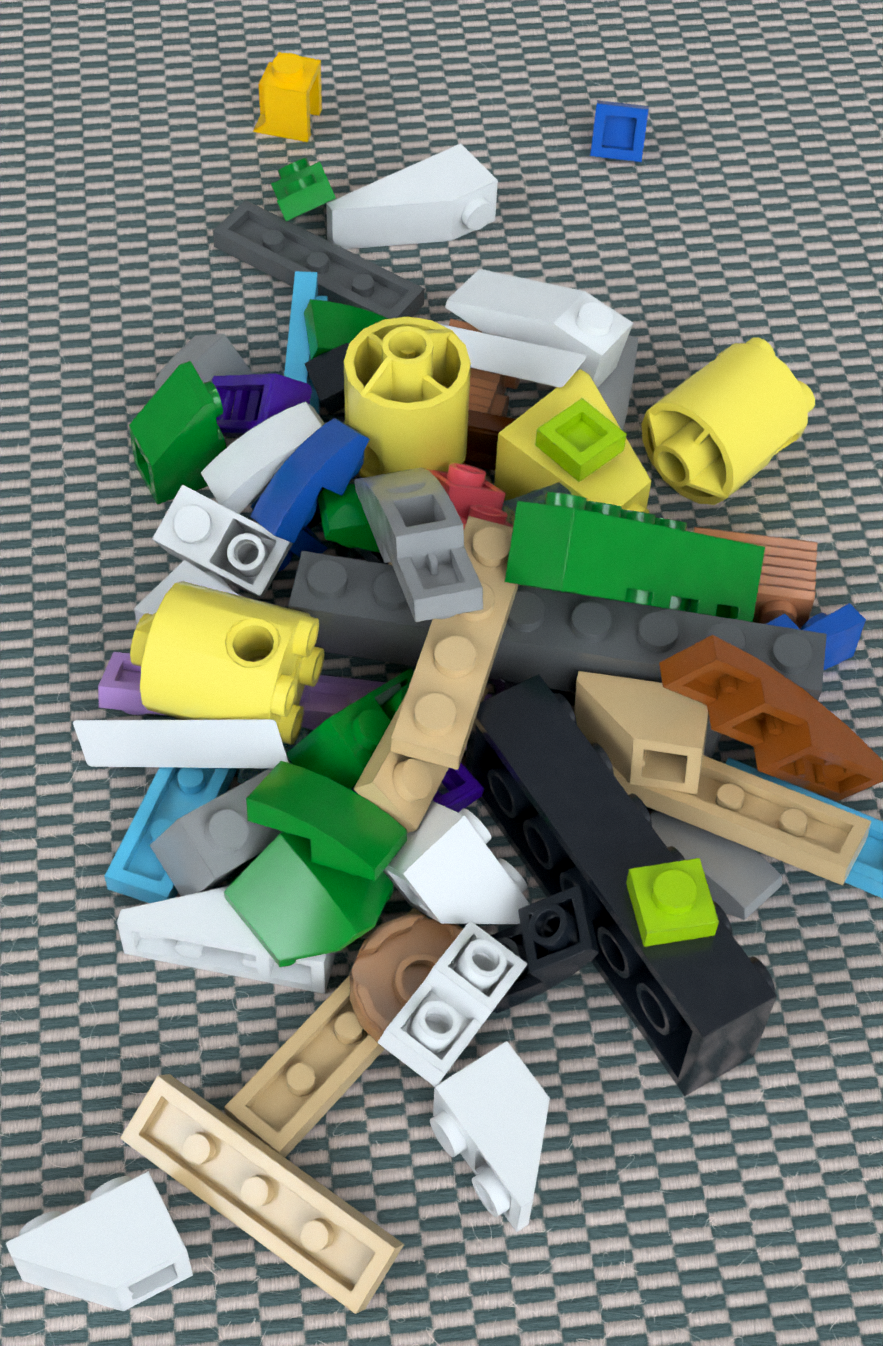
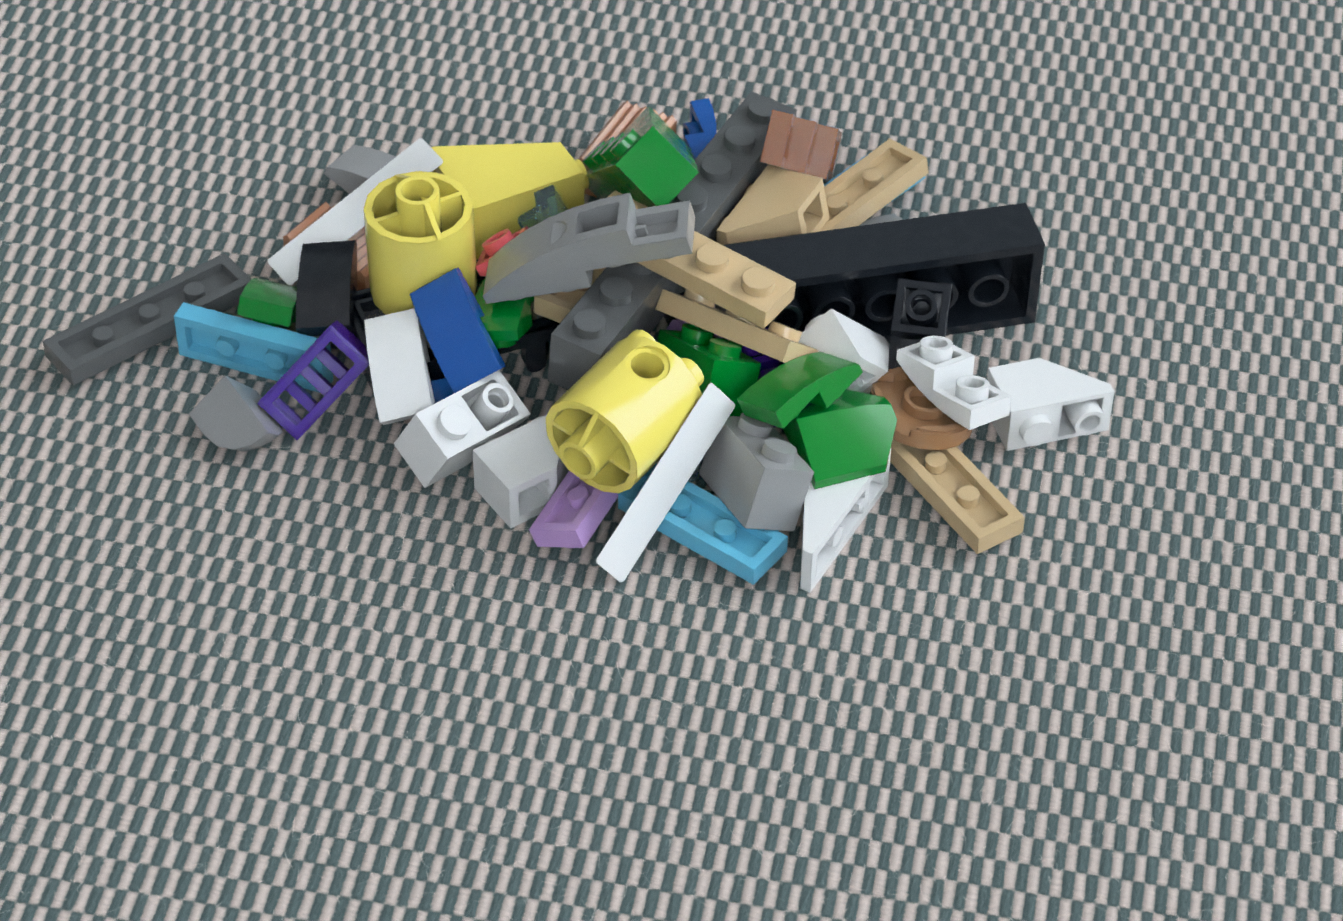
camera: 70 degrees left, 10 degrees down
(107, 1249) = (1067, 621): white slope -> none
(177, 434) = (326, 429): green slope -> none
(262, 1192) = (1046, 537): tan plate -> none
(302, 188) = (61, 299): green slope -> none
(416, 205) = (116, 228): white slope -> none
(544, 317) = (333, 169): white slope -> none
(580, 439) = (516, 157): lime plate -> none
(619, 131) = (99, 93): blue tile -> none
(672, 902) = (943, 224): lime plate -> none
(726, 422) = (480, 100): light yellow cylinder -> none

